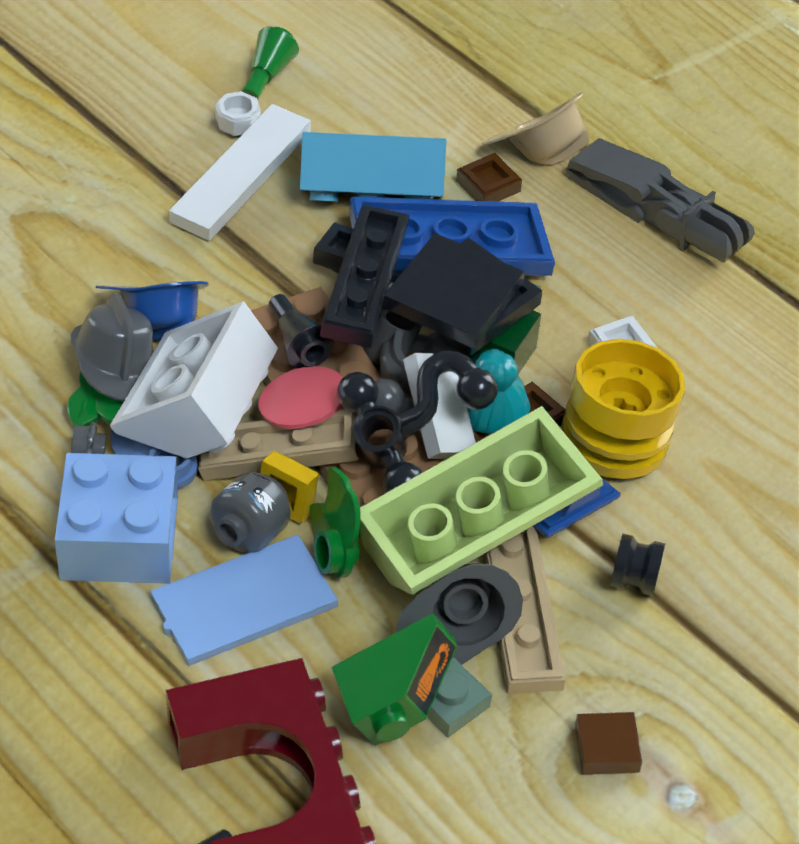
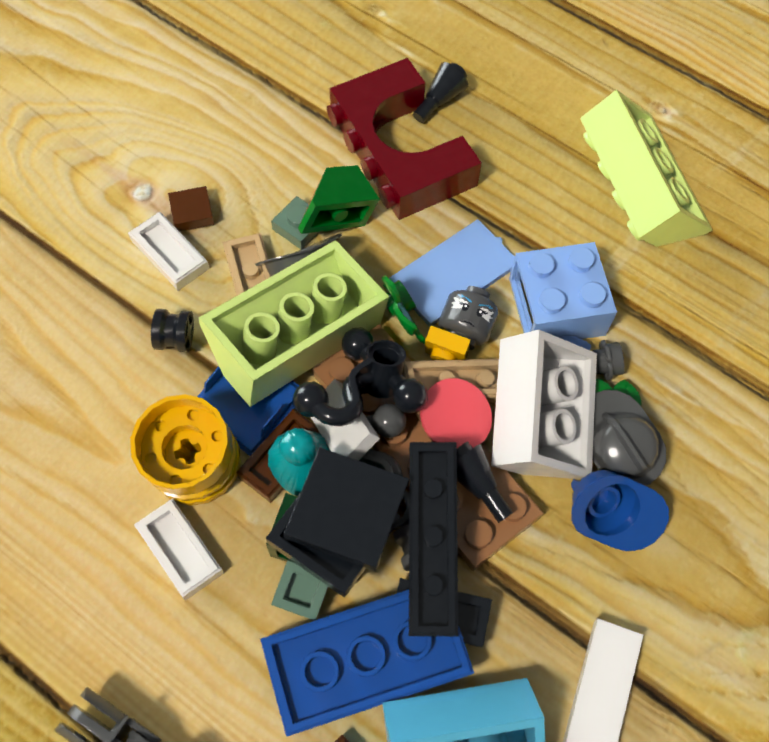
camera: 170 degrees right, 15 degrees up
(643, 687) = (169, 250): none -> white tile

